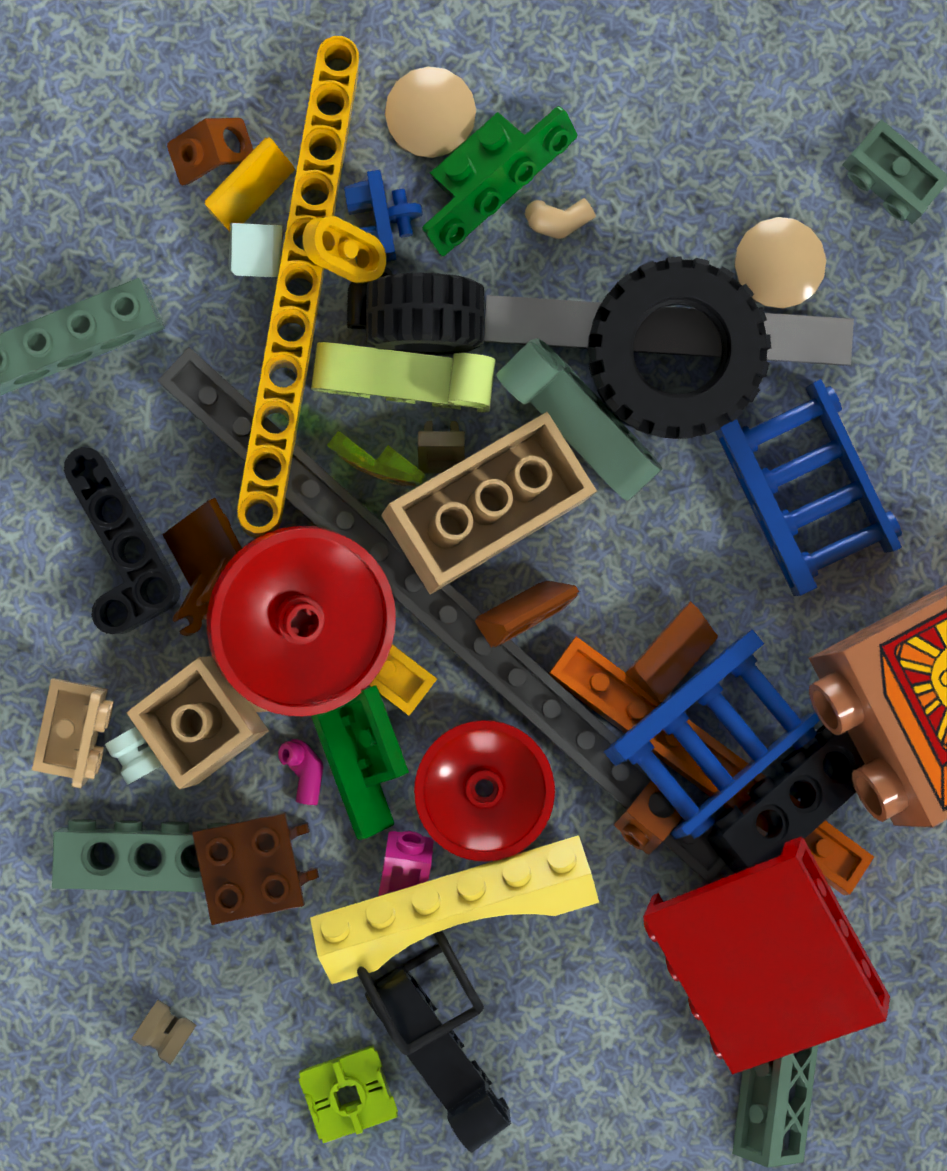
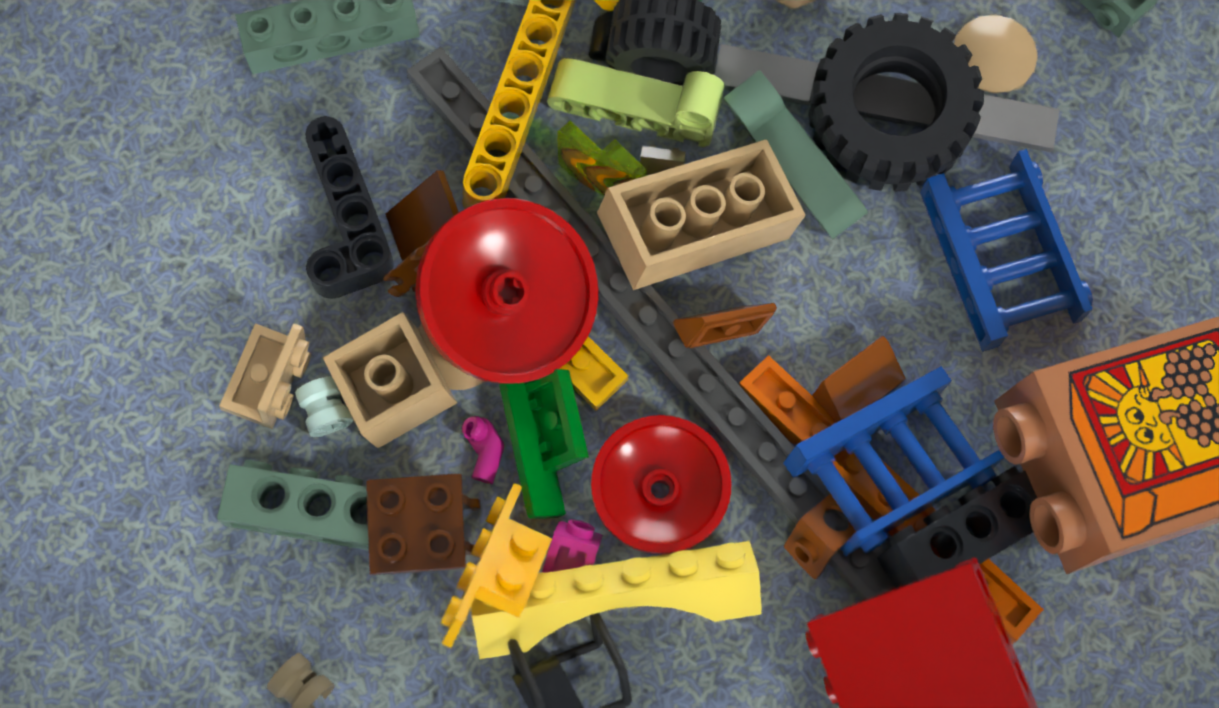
camera: 10 degrees right, 15 degrees down
(341, 907) = (505, 568): none -> yellow bracket

